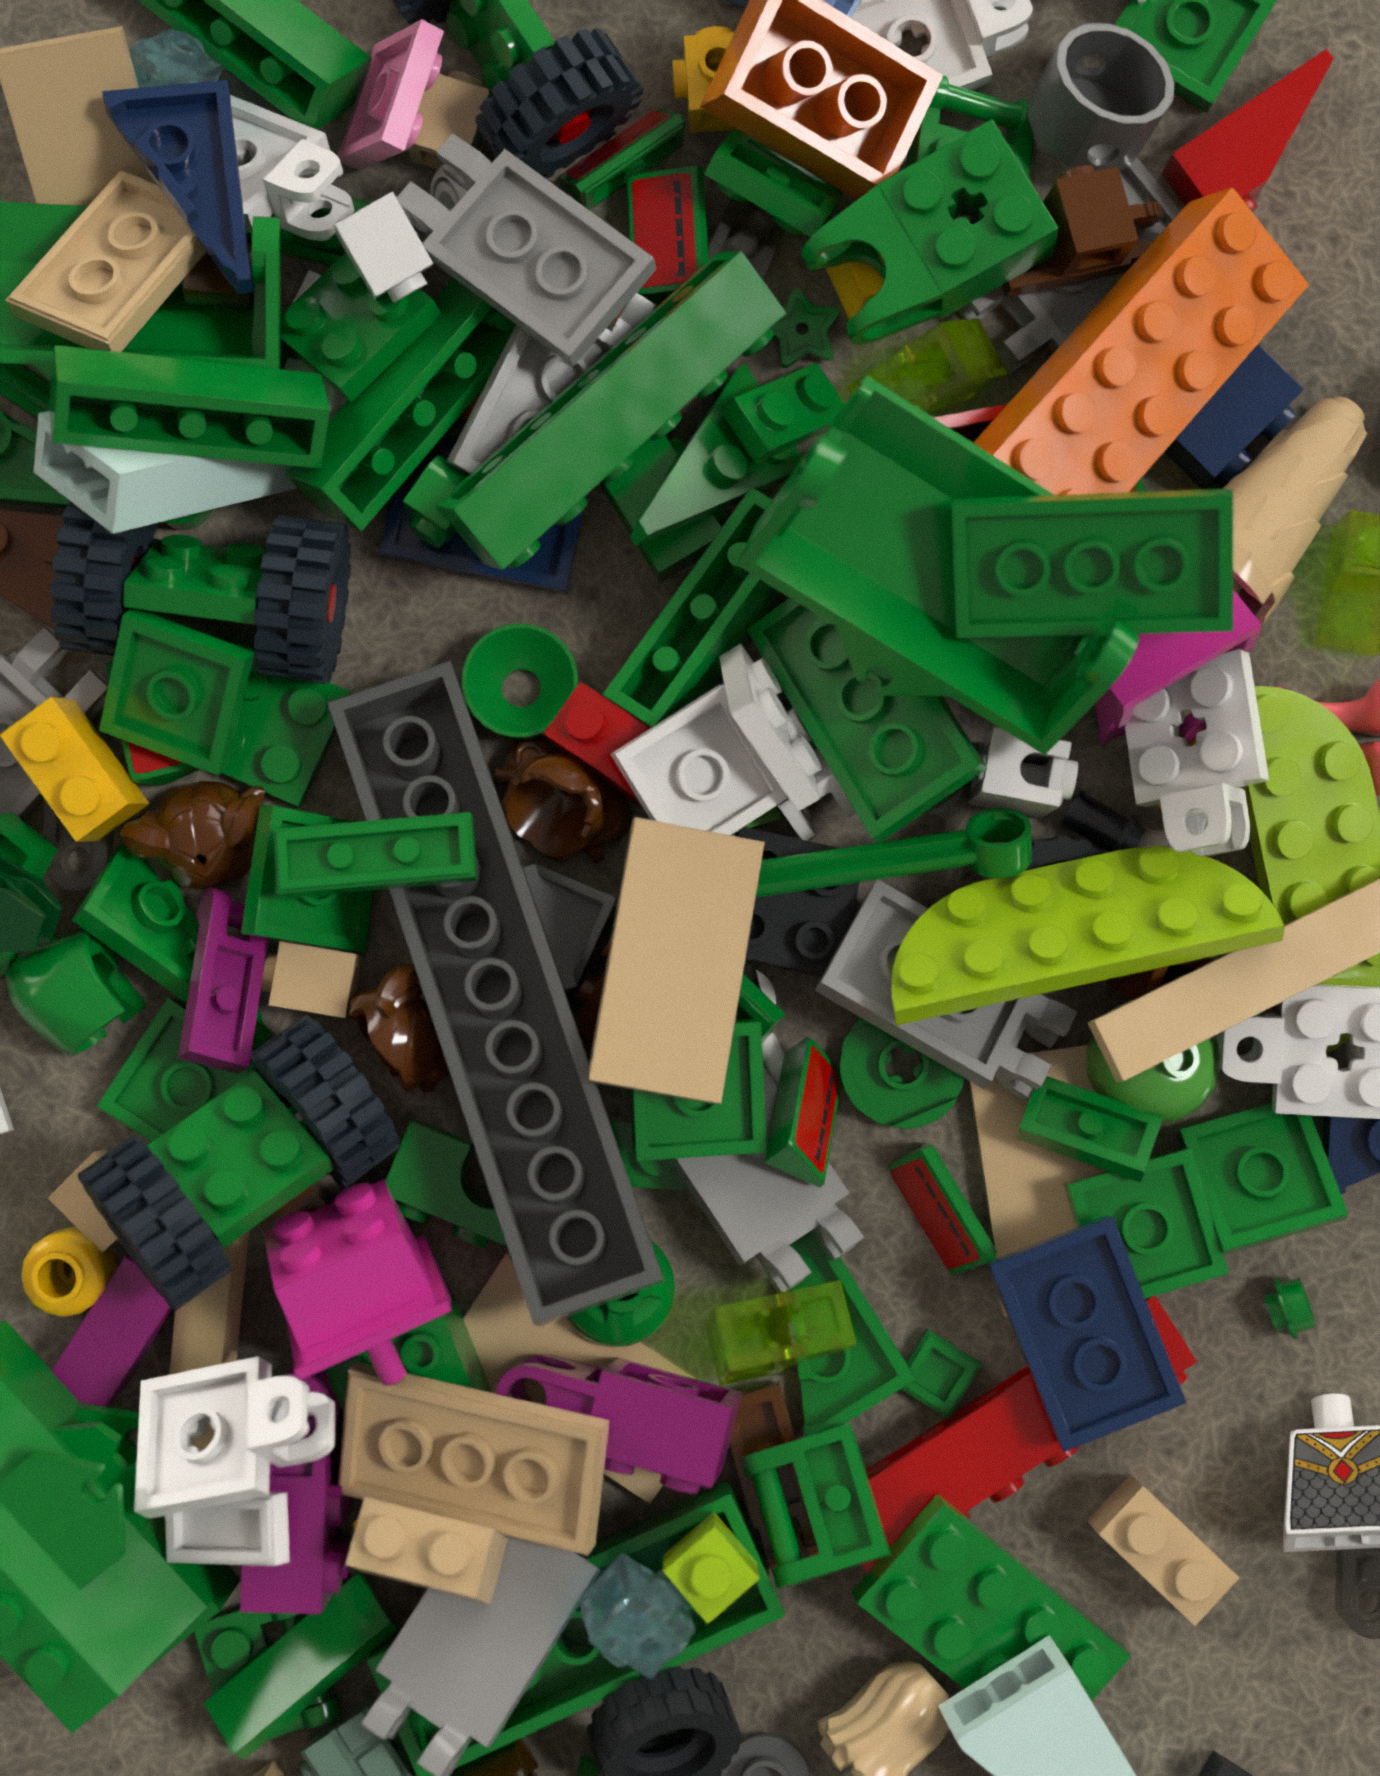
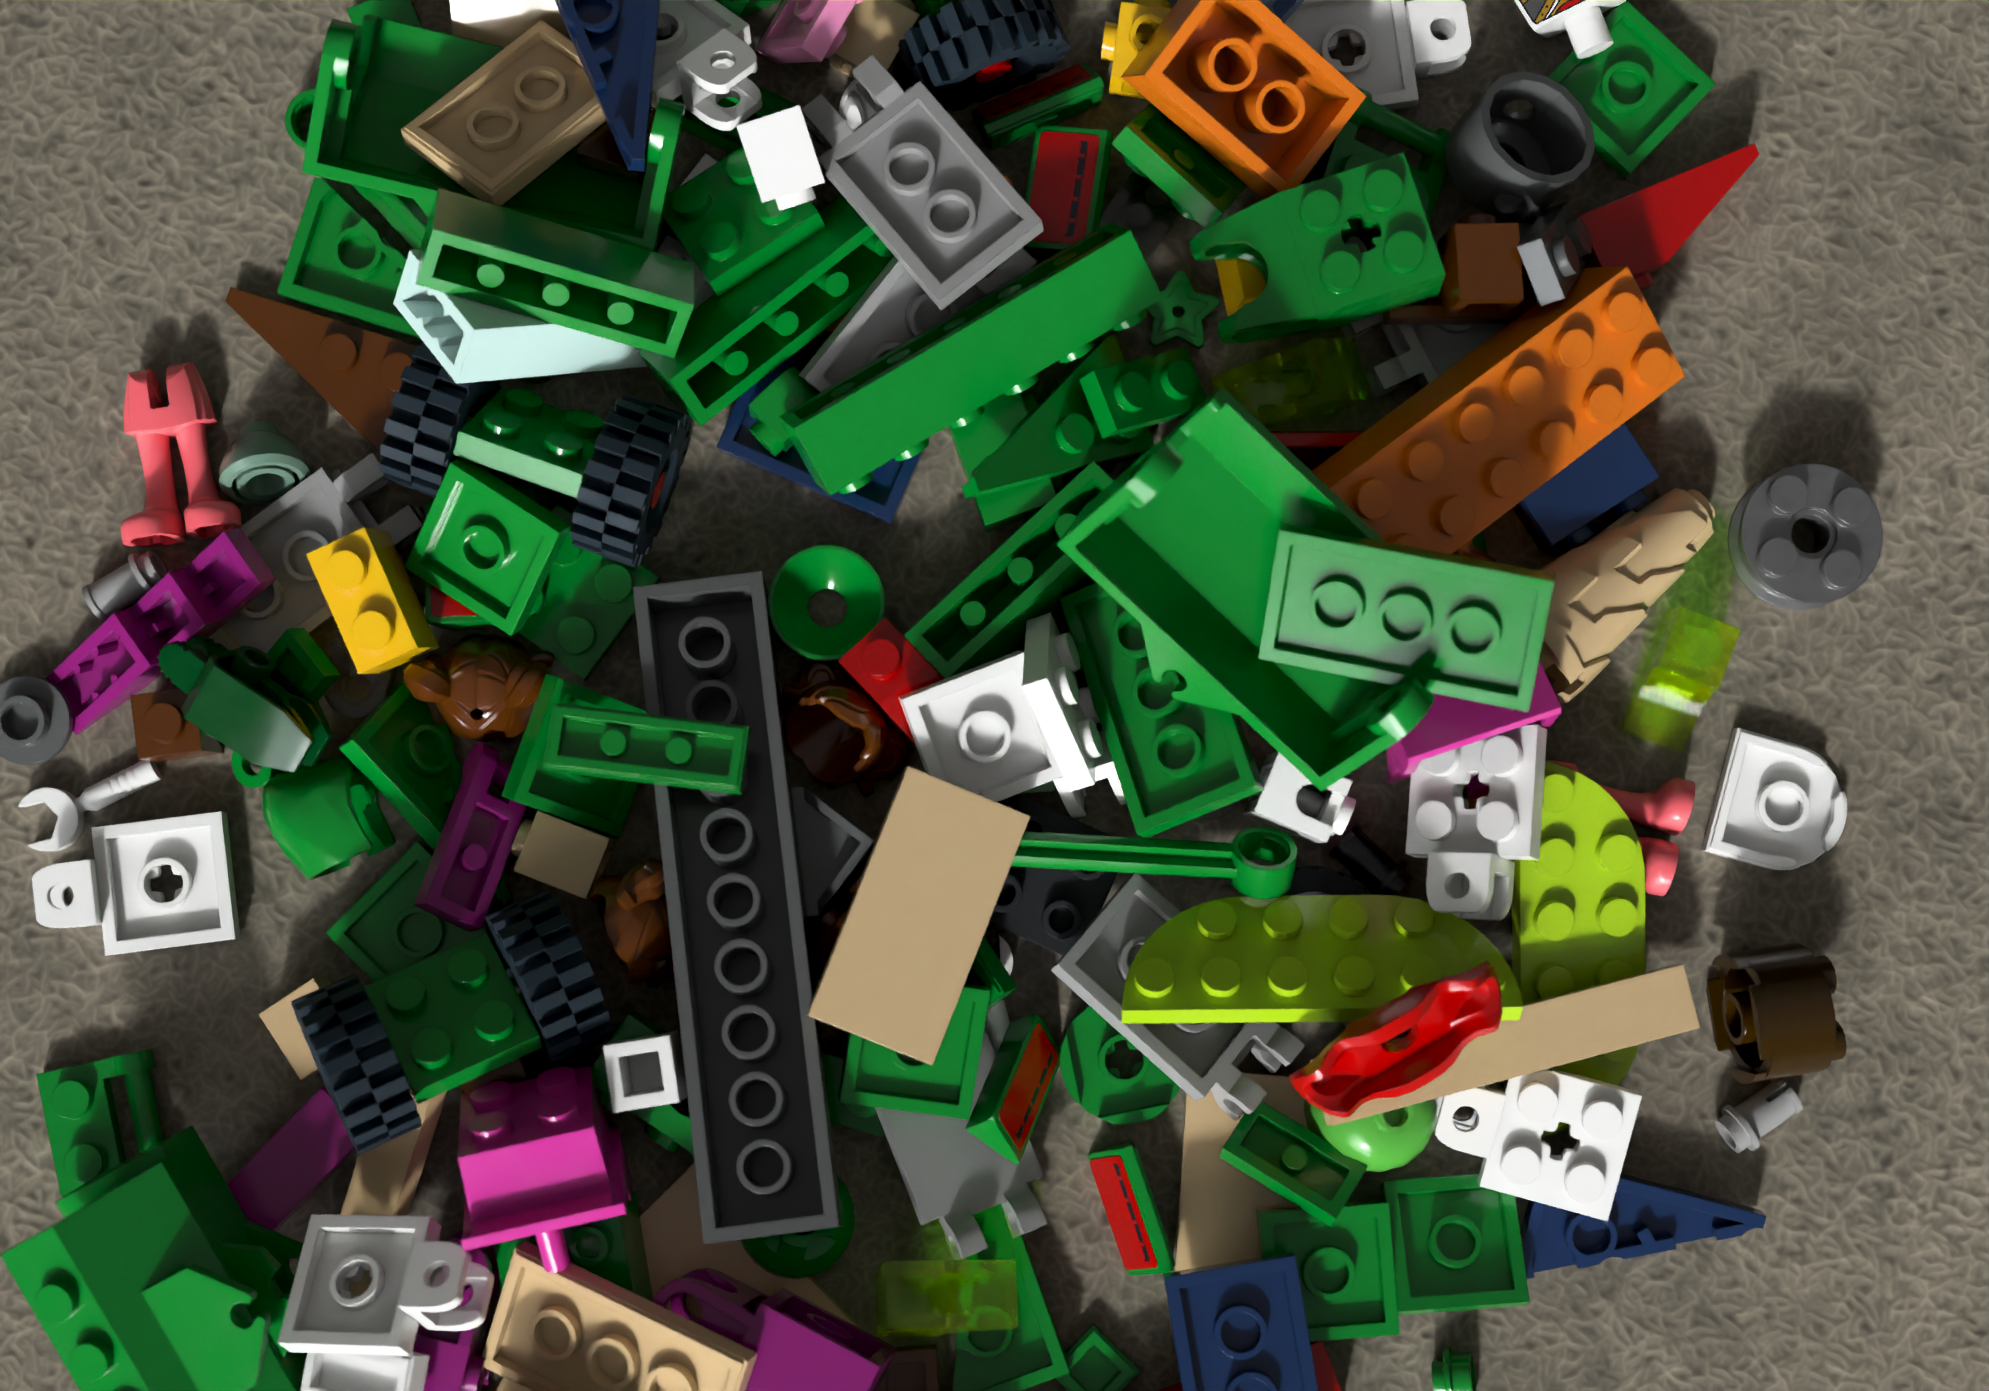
camera: 15 degrees right, 0 degrees up
(49, 1278) = (249, 1103): yellow head -> none
(440, 1171) = (645, 1071): none -> white brick
(1158, 191) = (1555, 252): none -> dark grey plate
(1210, 953) = (1441, 1021): none -> red piece

